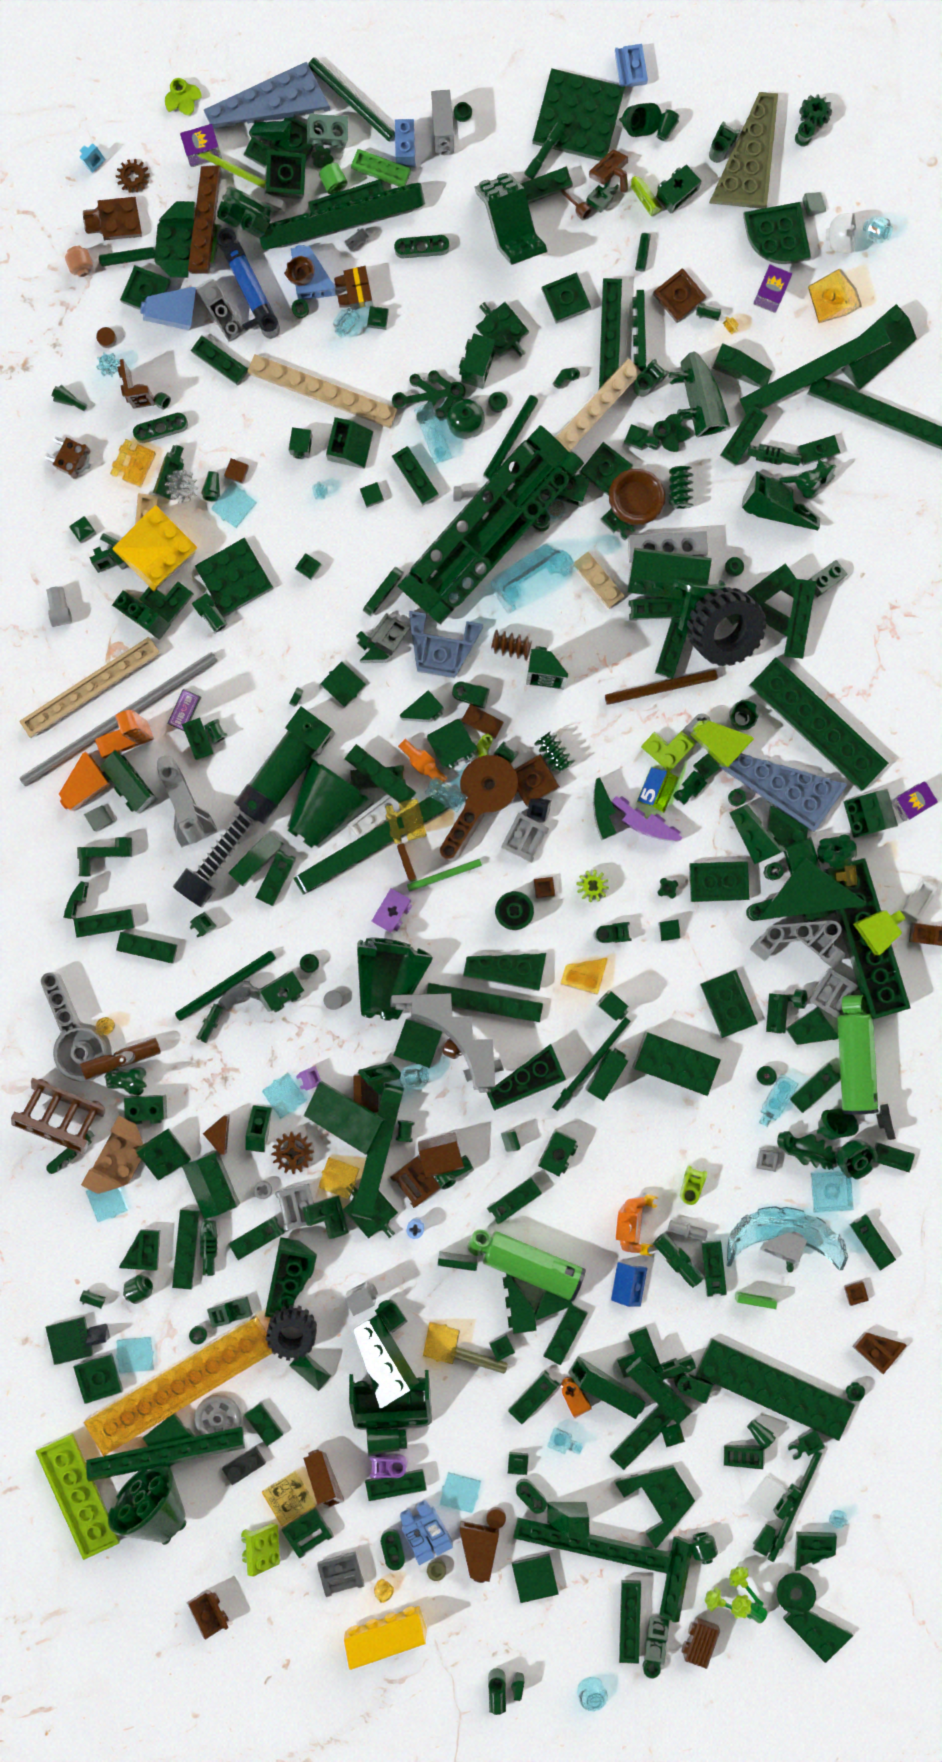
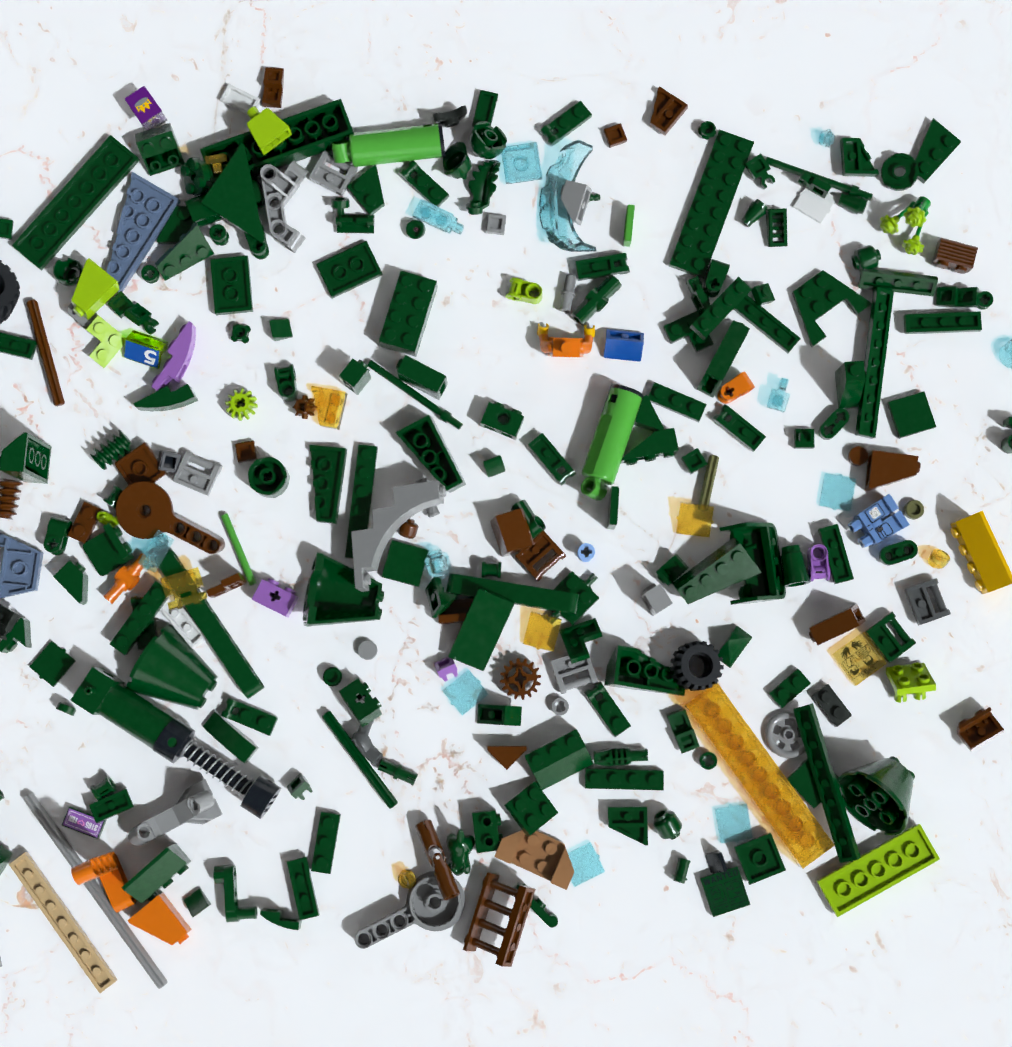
camera: 95 degrees left, 5 degrees down
(586, 946) = (304, 407): none -> reddish brown gear

